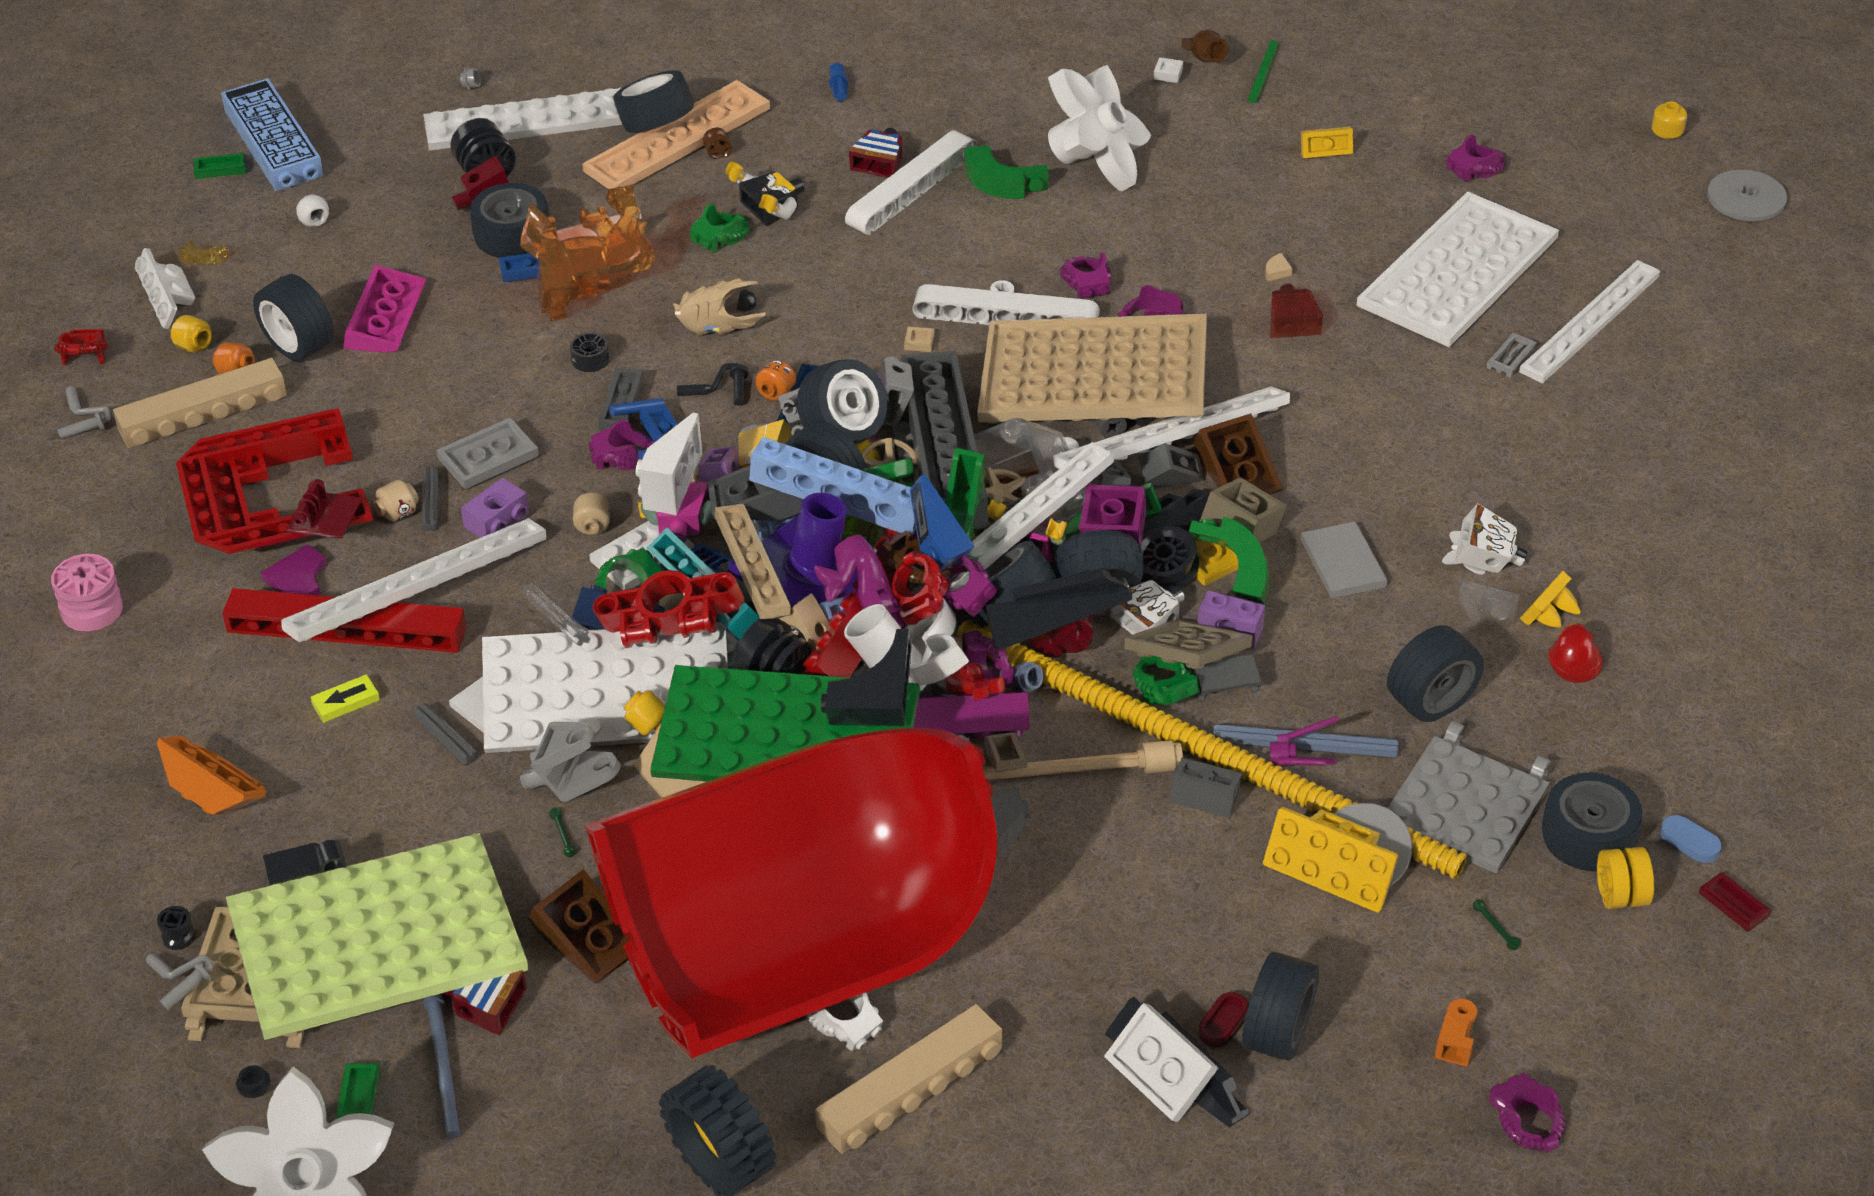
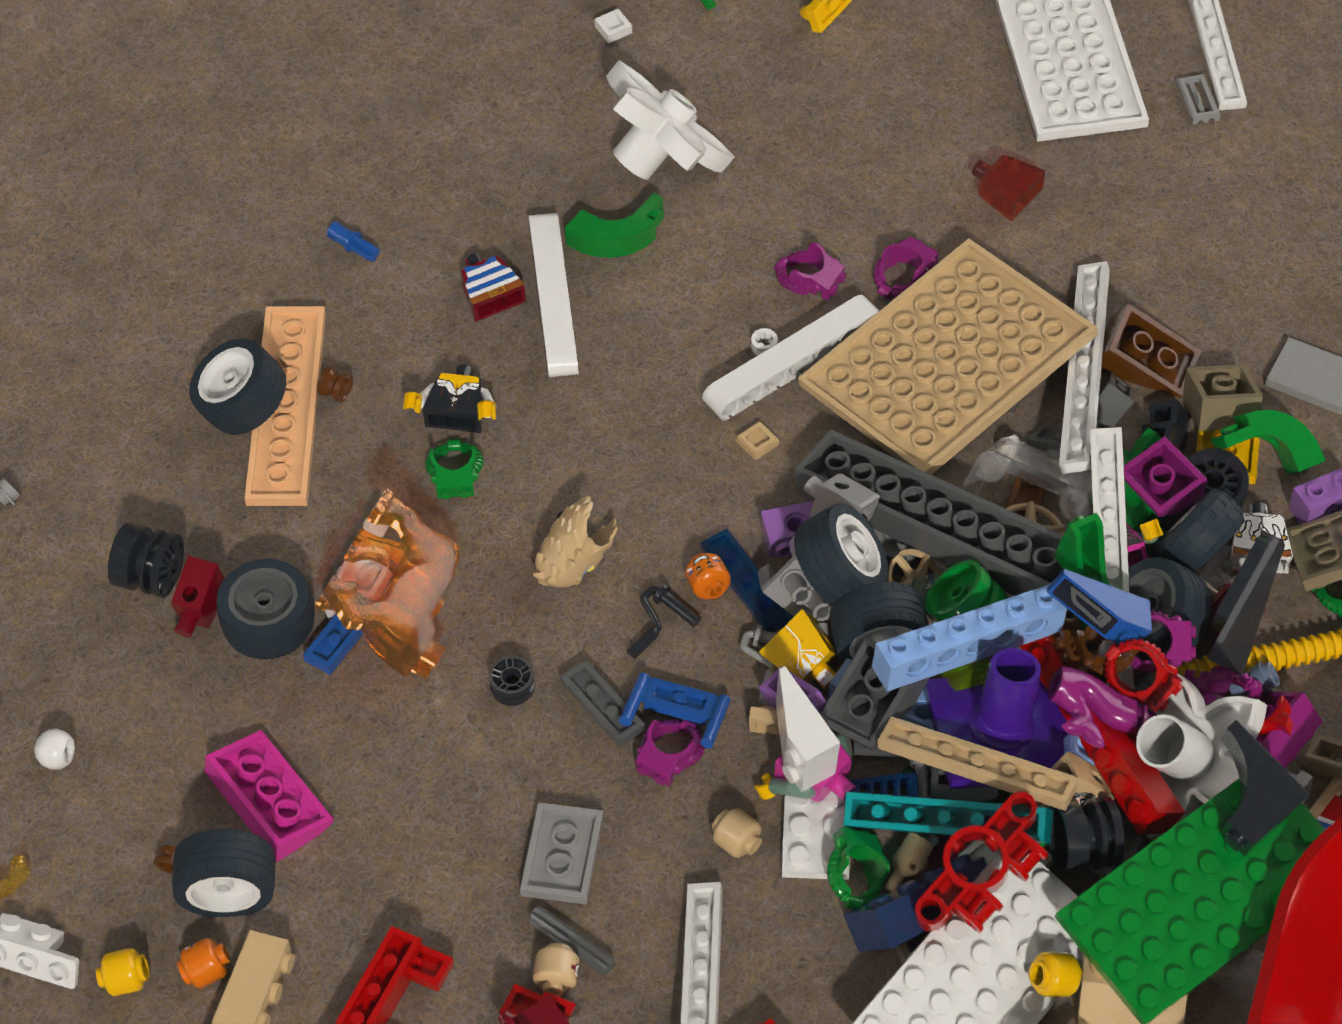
camera: 45 degrees left, 10 degrees up
(495, 508) = (649, 883): medium lavender brick -> none
(529, 117) = (113, 496): white plate -> none
(555, 614) = (865, 953): clear axle -> none
(1277, 268) = (937, 151): tan tile -> none

